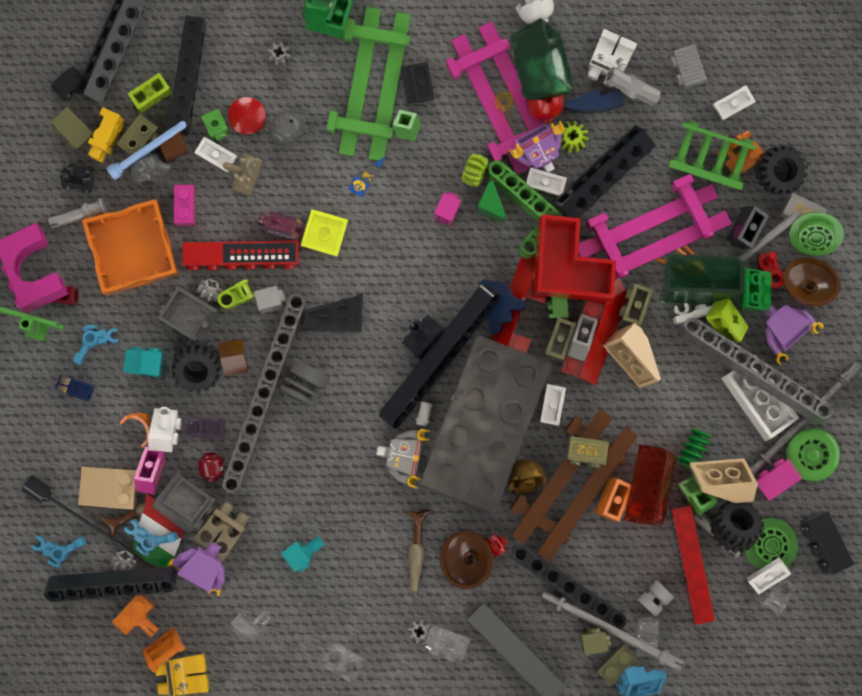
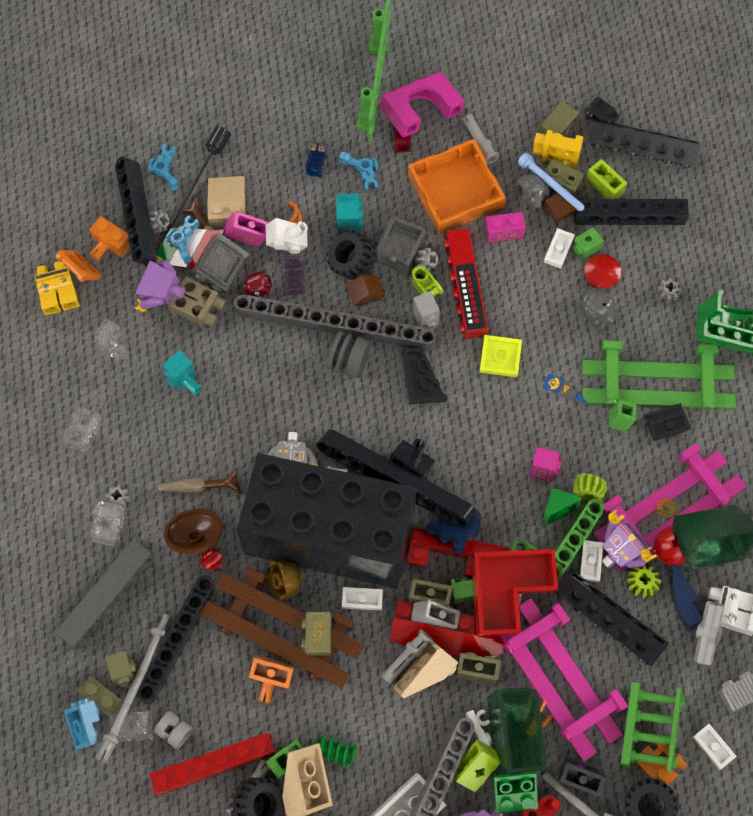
camera: 85 degrees right, 15 degrees down
(78, 178) = (514, 133): black piece -> none
(245, 174) = (545, 277): dark tan piece -> none
(282, 225) = (500, 312): clear pink torso -> none
(612, 363) = (413, 650): none -> light grey pin
(651, 486) = (289, 707): clear red windscreen -> none

